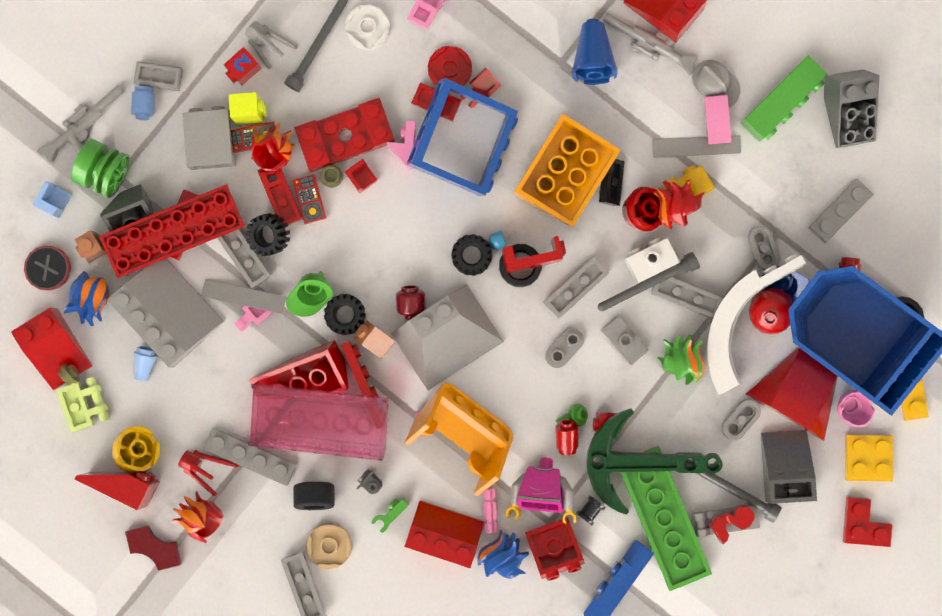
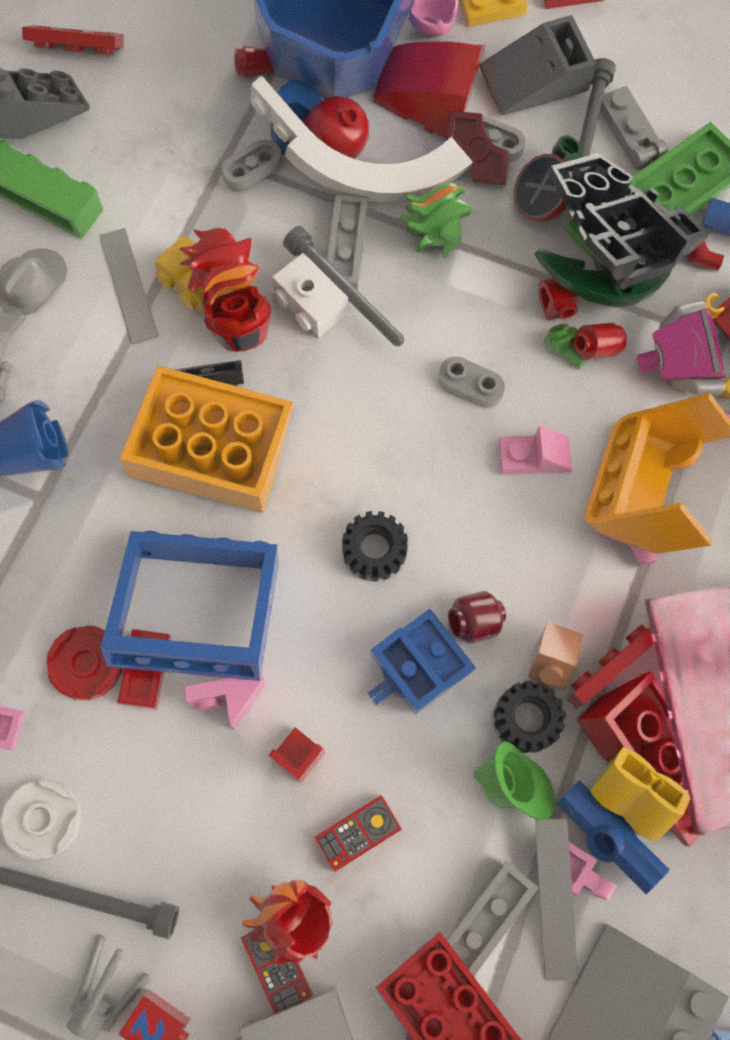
camera: 110 degrees left, 15 degrees down
(247, 108) = (229, 991): neon yellow brick -> none
(256, 234) = (457, 897): black tyre -> none
(266, 337) = (612, 838): none -> blue piece
(279, 358) = (640, 794): none -> yellow brick
(280, 196) = (370, 884): red plate -> none
(321, 138) = (205, 773): red piece -> none
(331, 176) = (309, 806): olive plate -> none
(393, 261) = (419, 663): none -> blue plate
(447, 337) = (512, 551): light grey slope -> none
(483, 84) = (96, 599): red plate -> none
(497, 241) = (341, 513): dark azure hinge -> none
(504, 372) = (540, 453): none -> bright pink slope
(520, 282) = (372, 445): black tyre -> none
(533, 261) = (342, 407): red panel -> none
(576, 287) = (379, 386): light grey plate -> none
(590, 510) = (687, 287): black bush -> none
(617, 528) = (705, 258): none -> red arm
(625, 340) = (433, 306): light grey plate -> none
(639, 472) = (622, 225): none -> black wedge
(687, 438) = (535, 191): none -> black tile
(717, 119) = (82, 259): bright pink slope -> none
(740, 517) = (626, 103): red leg -> none
(742, 400) = (489, 161): none -> dark red tile
(841, 211) = (175, 91): light grey plate -> none
(902, 149) = (73, 38): none -> red plate

